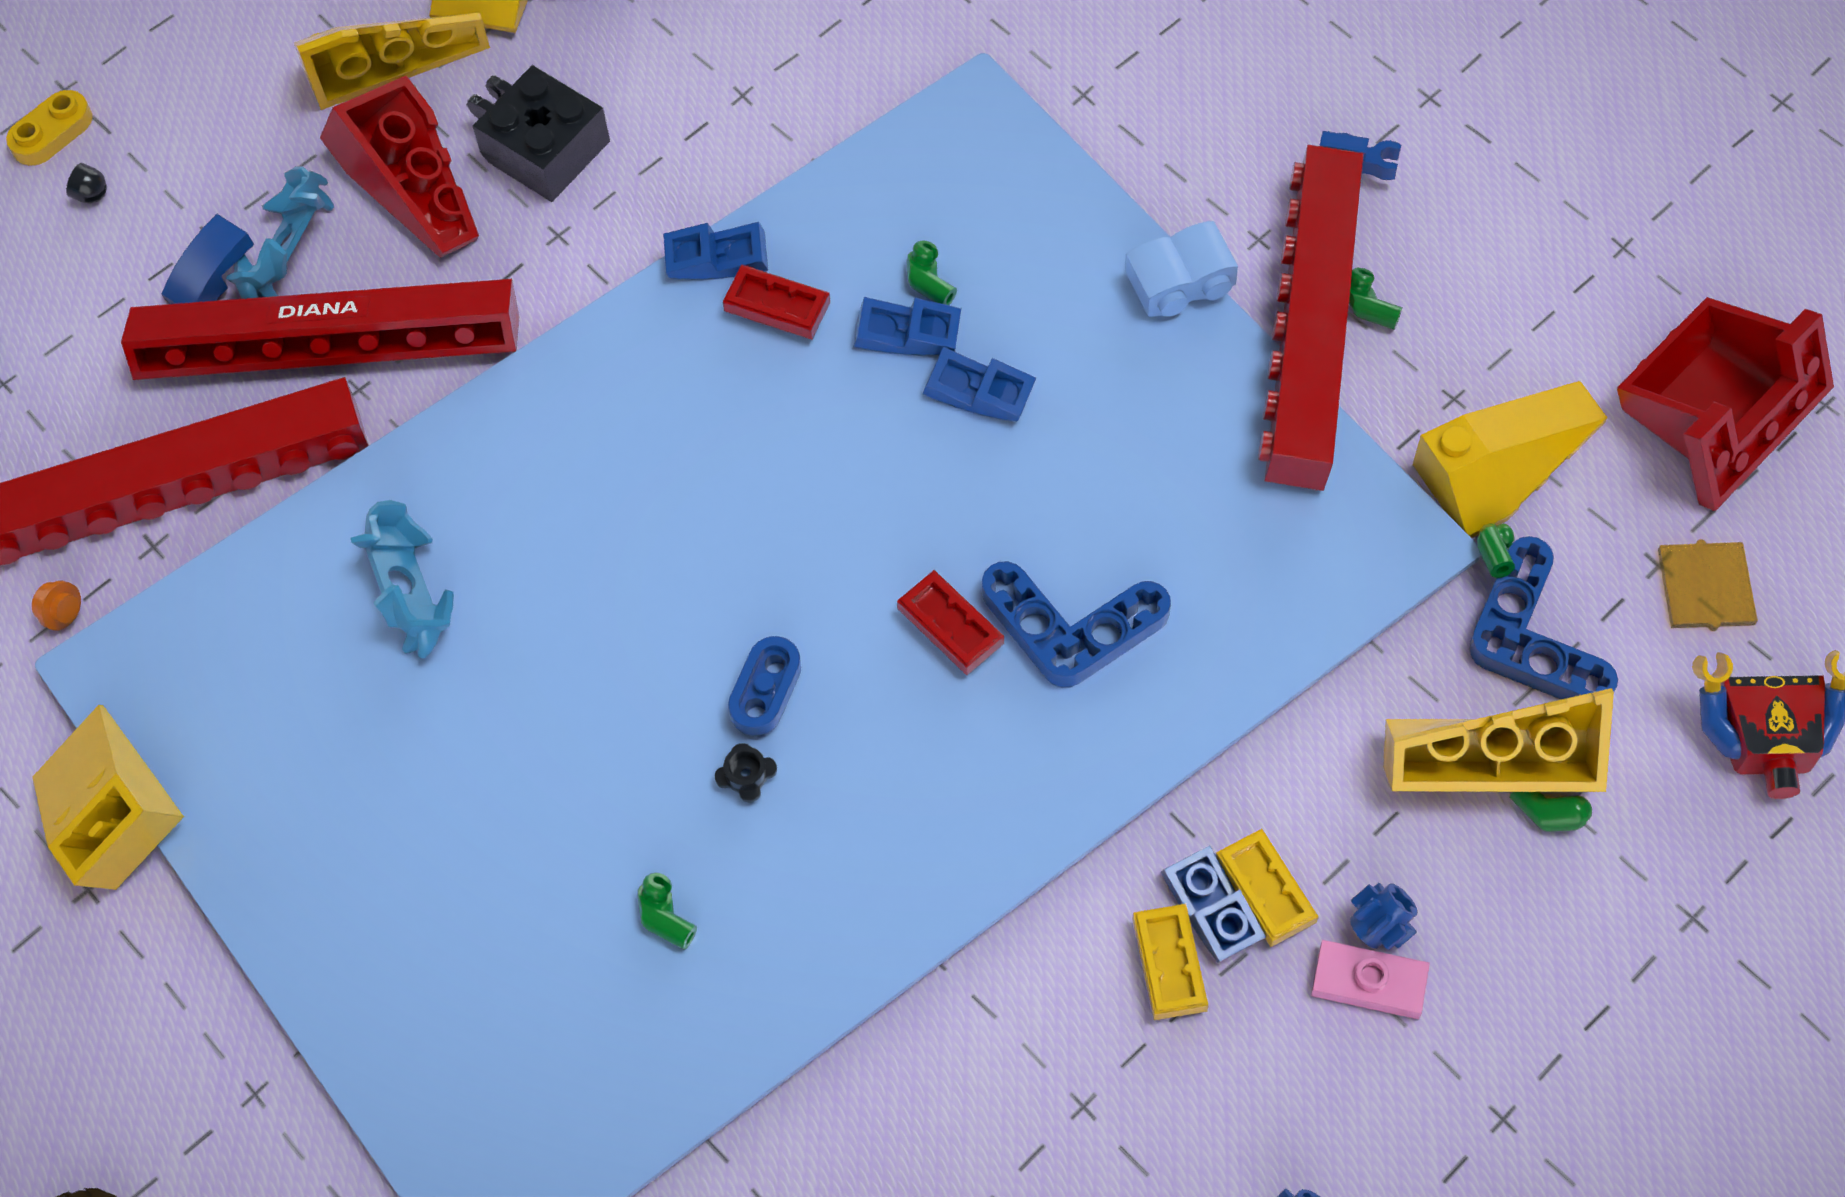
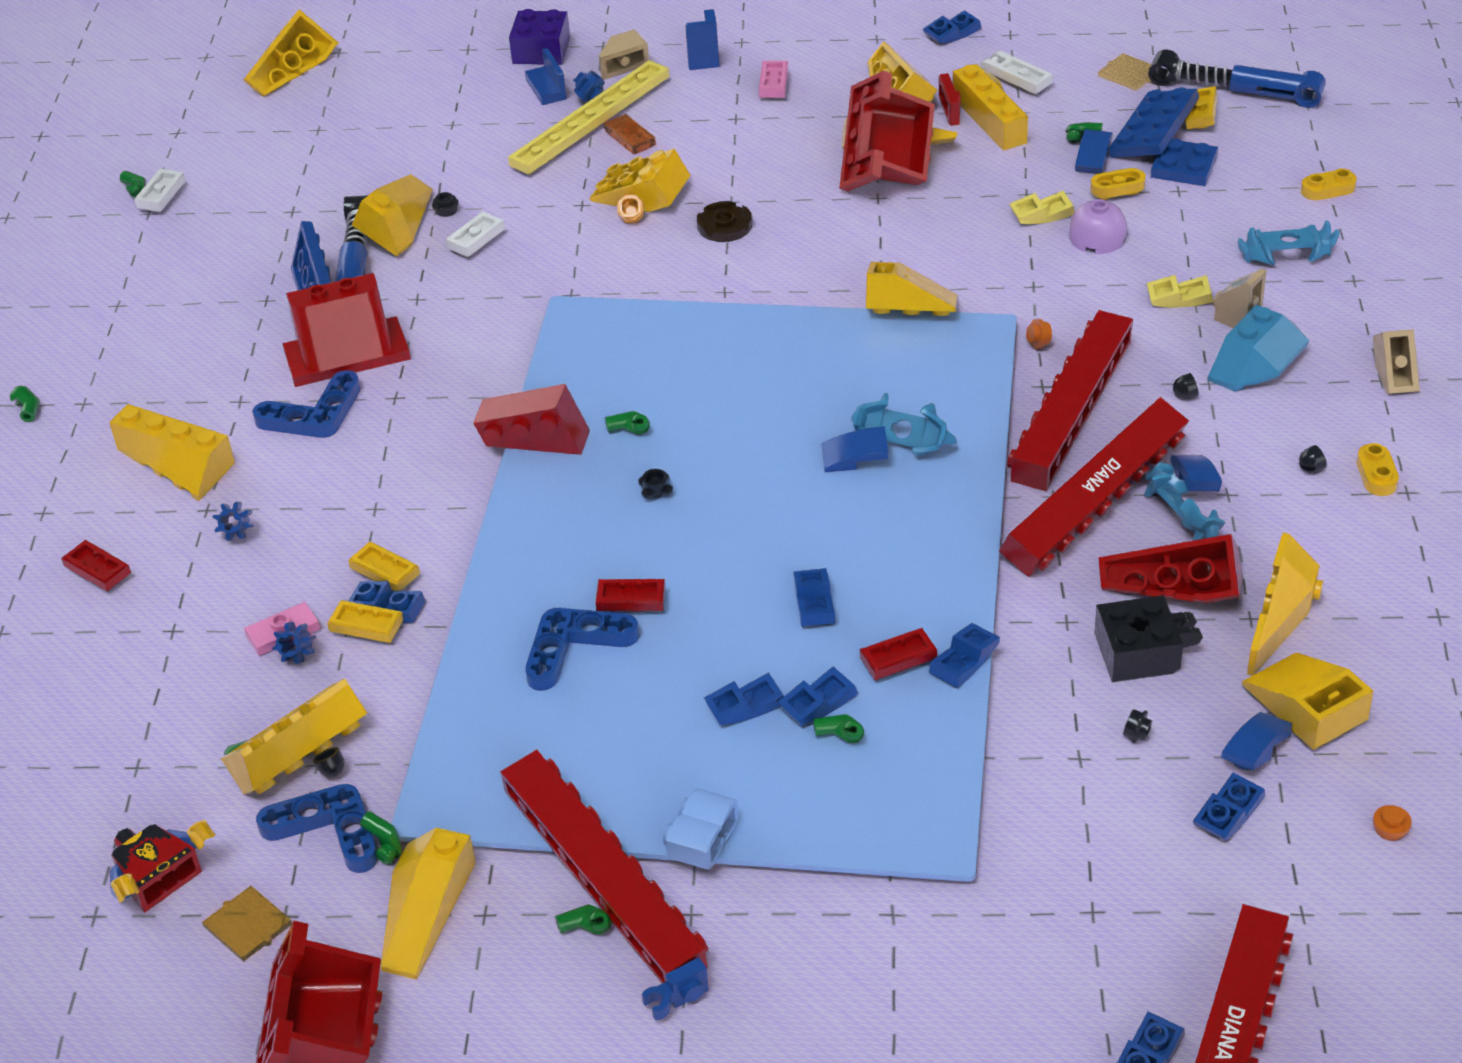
camera: 135 degrees right, 20 degrees down
(40, 382) = (1185, 387): none -> black hinge
(487, 597) = (856, 446): none -> blue slope
(661, 65) = (1137, 725): none -> black plate
(762, 688) = (686, 513): blue plate -> none
(768, 452) = (814, 597): none -> blue slope
(791, 1009) = (533, 421): none -> red wedge
(1479, 691) = (330, 762): none -> black hinge

